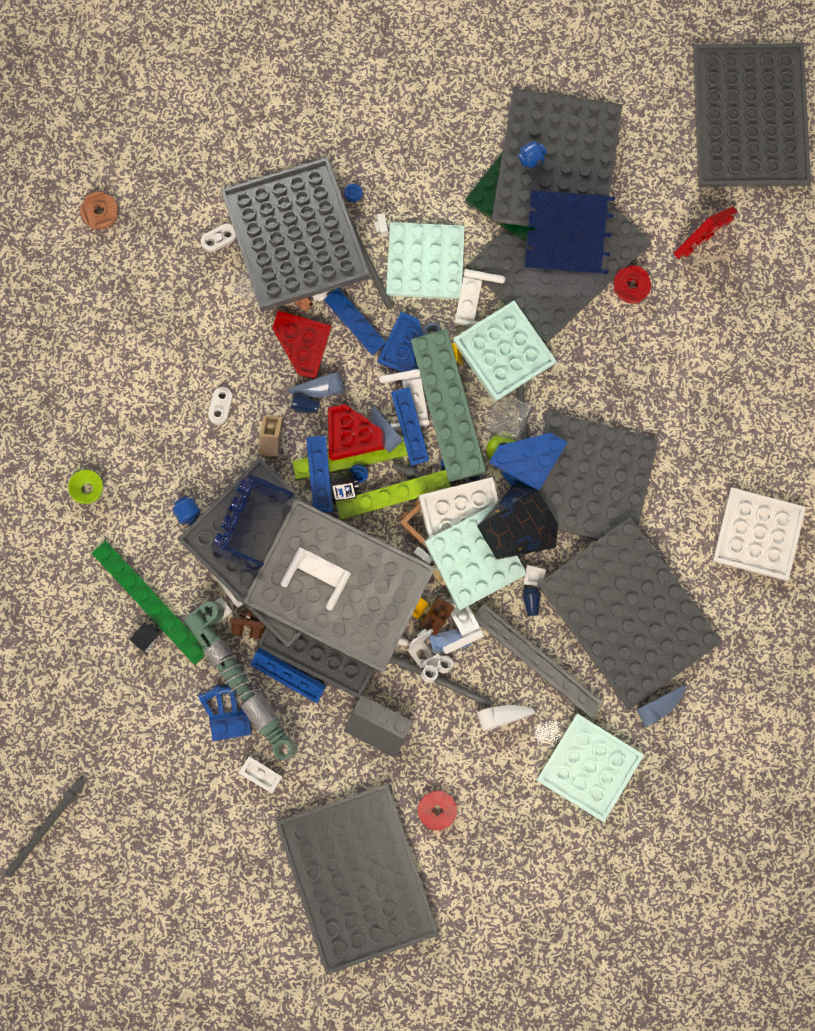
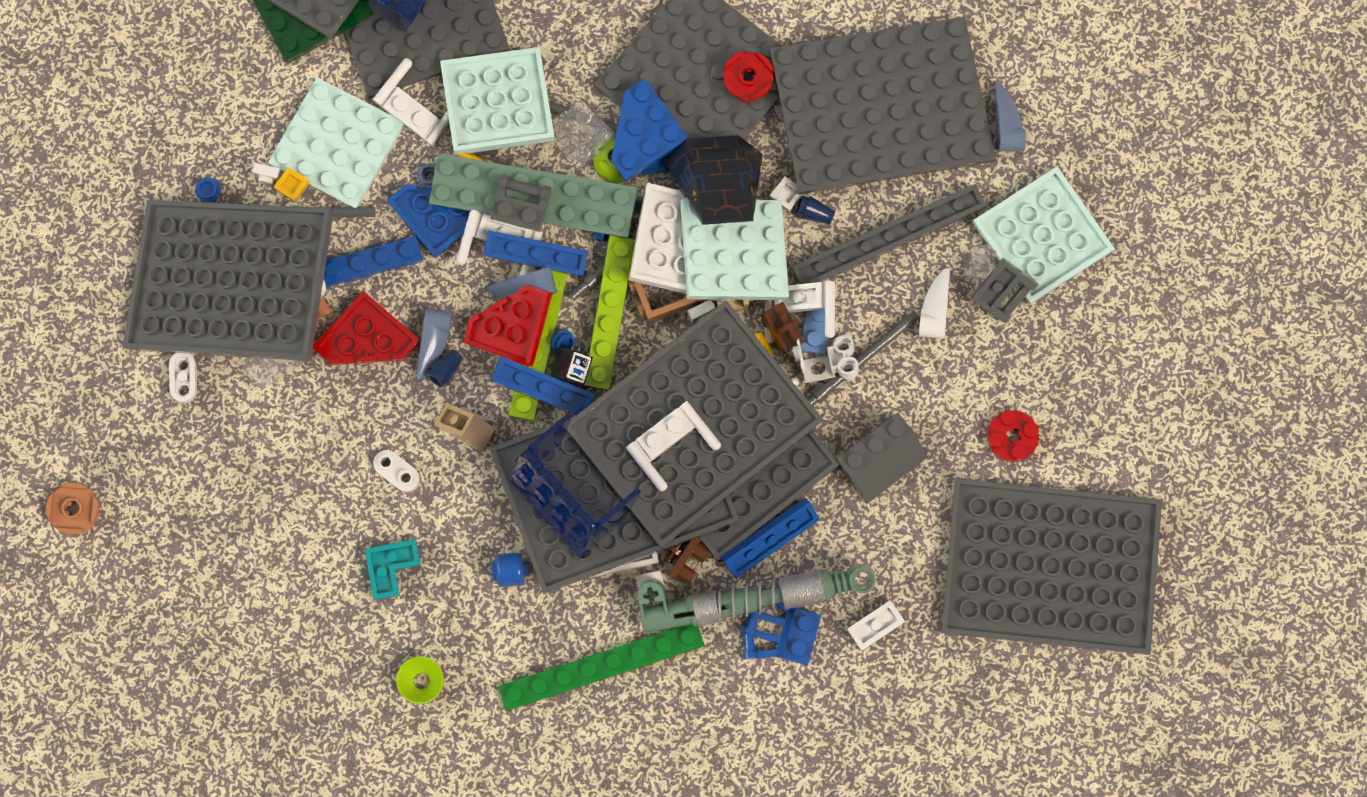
camera: 60 degrees left, 0 degrees up
(145, 637) = (643, 689): black brick -> none
(156, 427) = (384, 562): none -> teal plate
(381, 244) = (291, 184): none -> yellow tile
(431, 402) = (520, 212): none -> dark grey plate
(535, 751) = (998, 286): none -> dark grey plate
(612, 506) = (746, 90): none -> red plate

